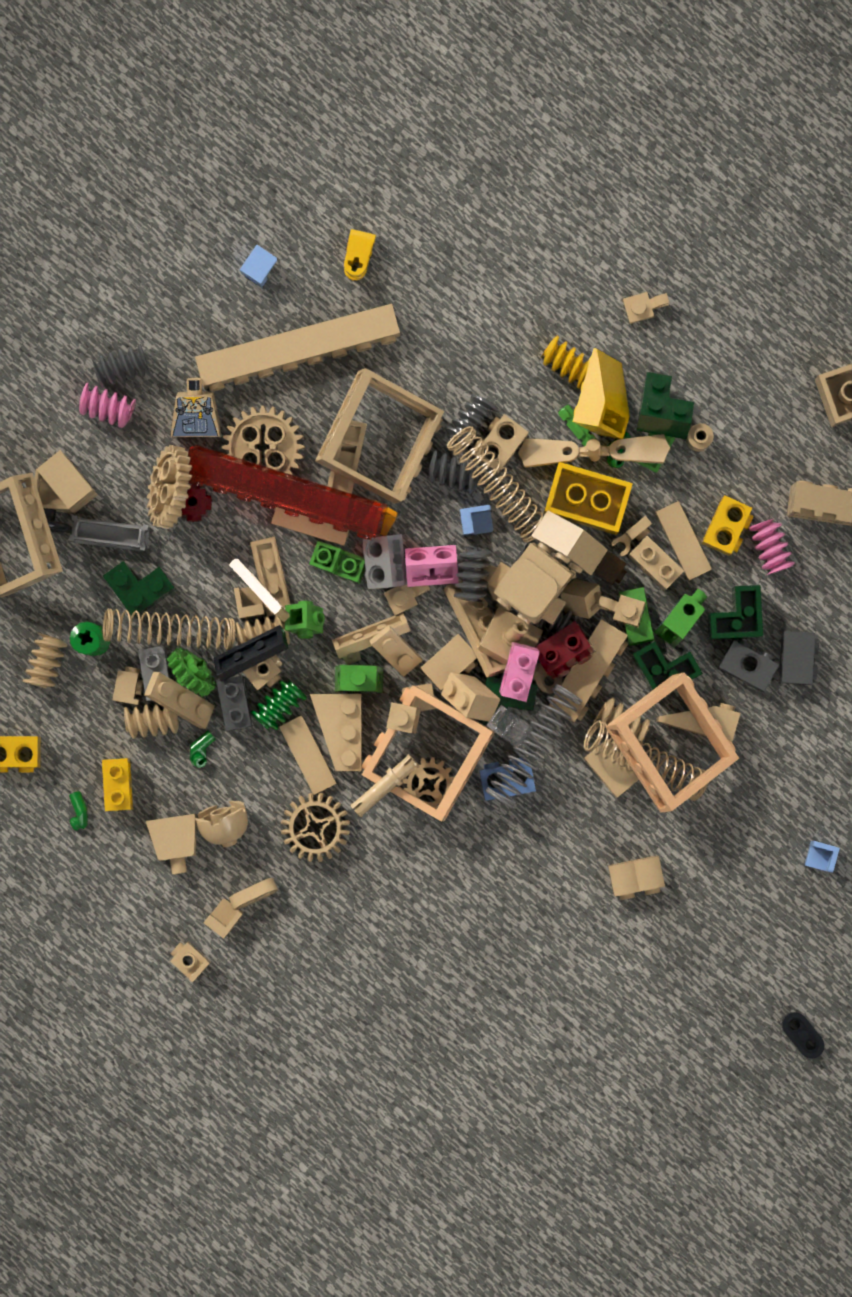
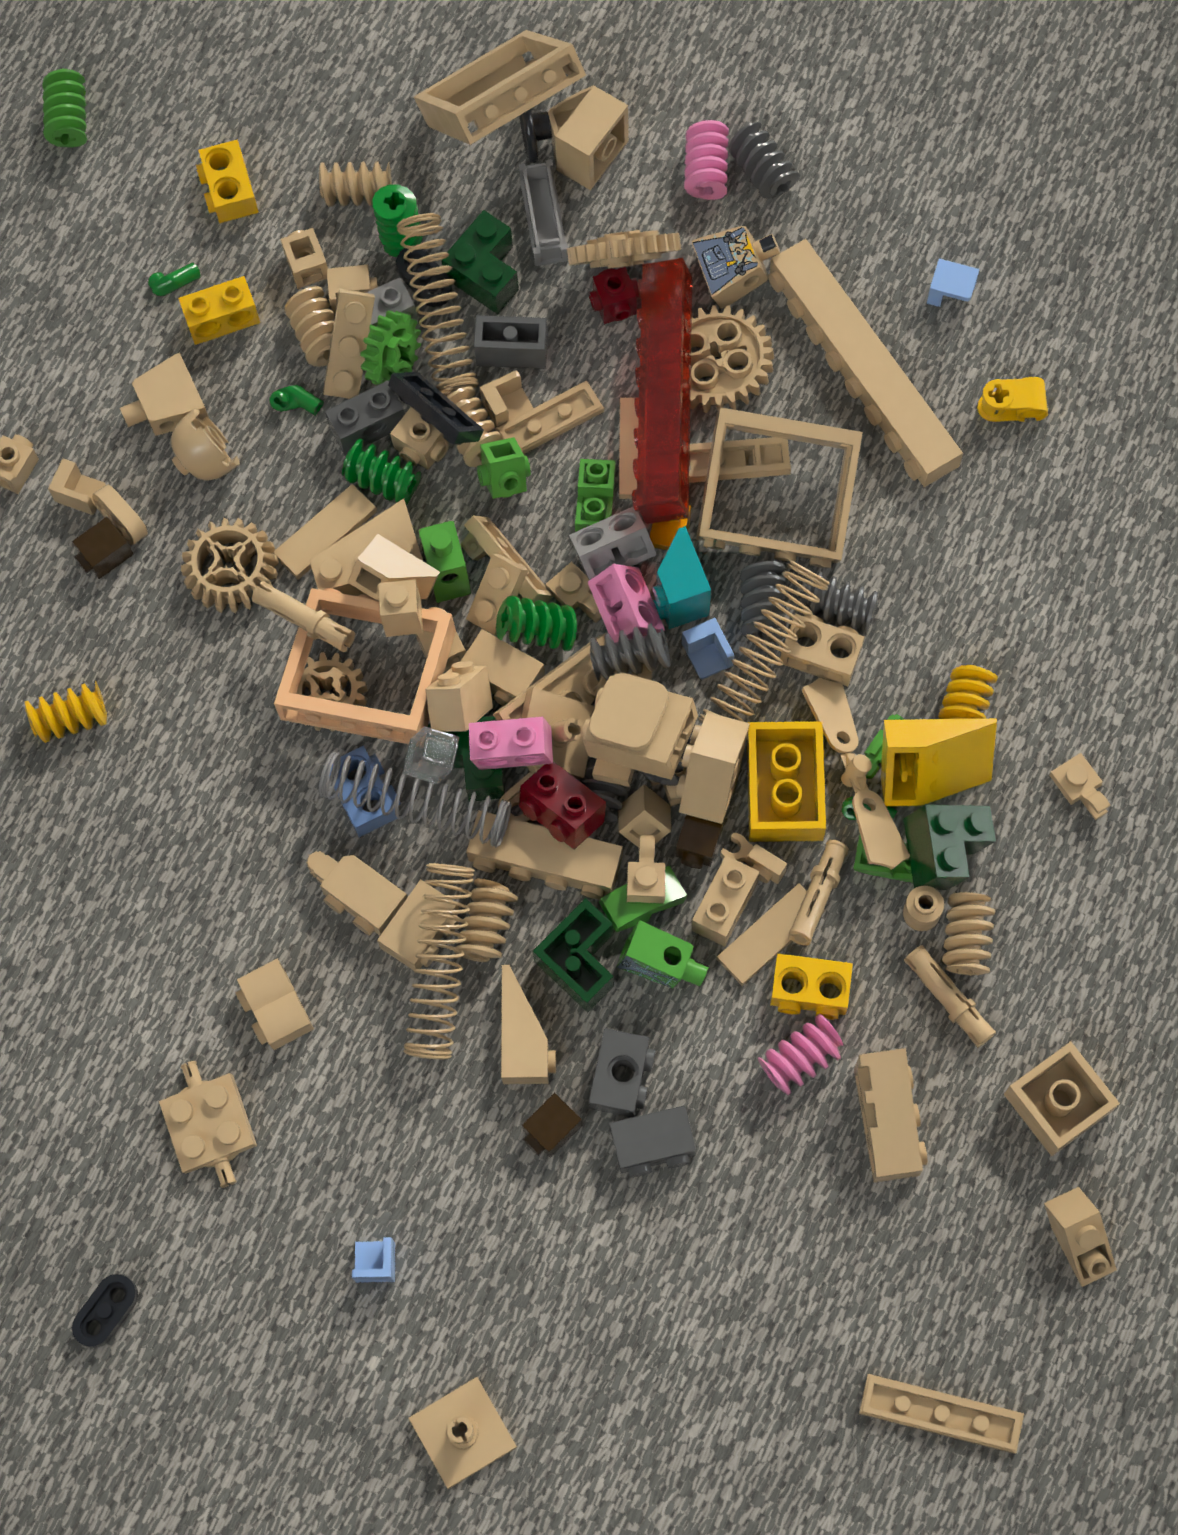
camera: 80 degrees right, 15 degrees down
(102, 708) = (304, 257): none -> tan brick
(135, 625) = (402, 265): none -> black plate
(209, 586) = (511, 341): none -> dark grey brick
(259, 590) = (524, 400): tile -> none
(276, 913) = (101, 548): none -> dark brown brick
(370, 717) = (387, 562): none -> slope
(391, 965) = (66, 713): none -> yellow piece
(426, 629) = (537, 620): none -> green piece
(429, 524) = (681, 584): none -> teal slope
(576, 800) = (358, 890): none -> tan hinge
(641, 762) = (425, 940): light nougat window -> none
(644, 483) = (832, 858): none -> tan pin
(700, 940) = (208, 1123): none -> tan plate
(725, 414) = (966, 933): none -> tan piece
(744, 620) = (686, 1046): dark green brick -> none
(759, 439) = (956, 1004): none -> tan pin
(769, 720) = (550, 1126): none -> dark brown brick

